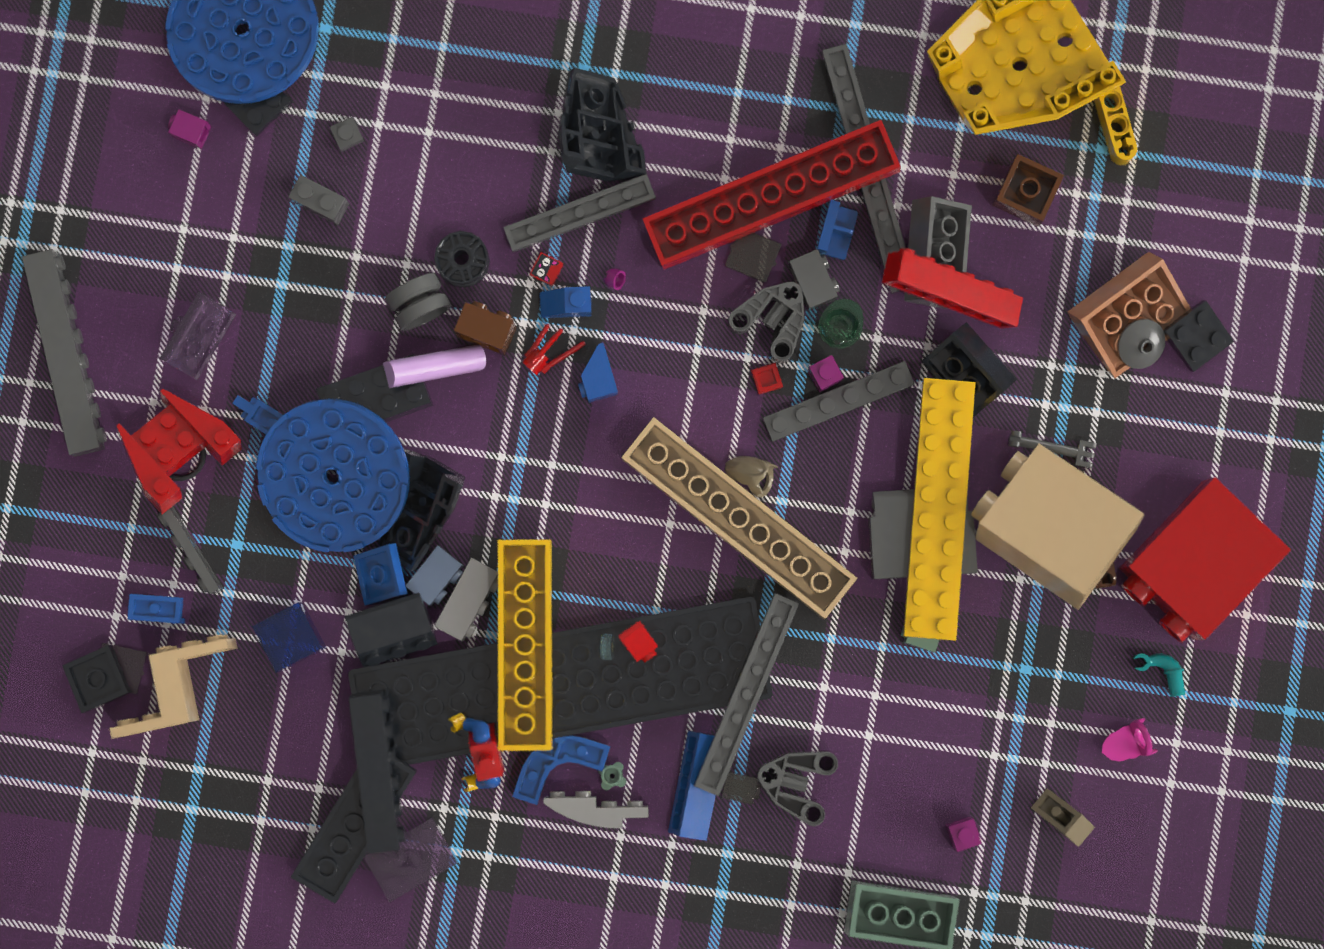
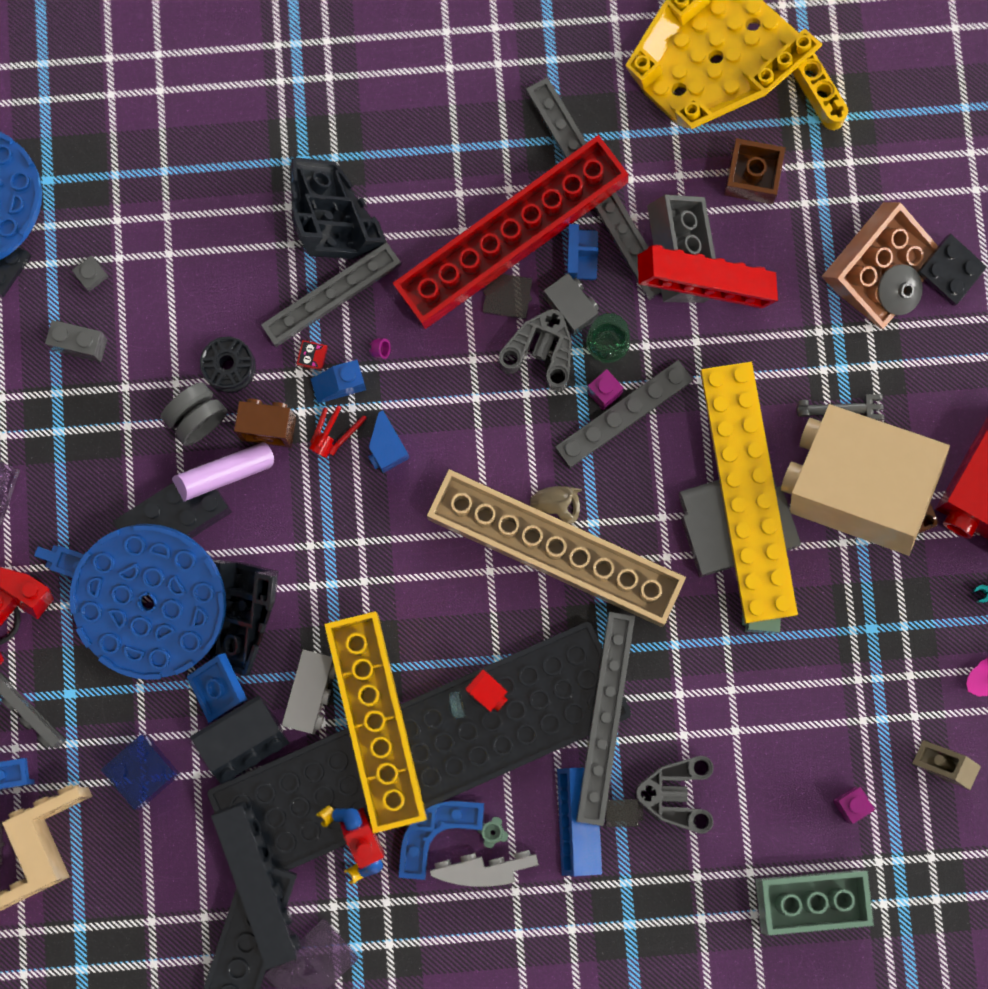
camera: 10 degrees left, 5 degrees down
(435, 576) = (272, 676): sand blue brick -> none
(767, 378) = (549, 408): red tile -> none
(969, 359) = (738, 342): black slope -> none

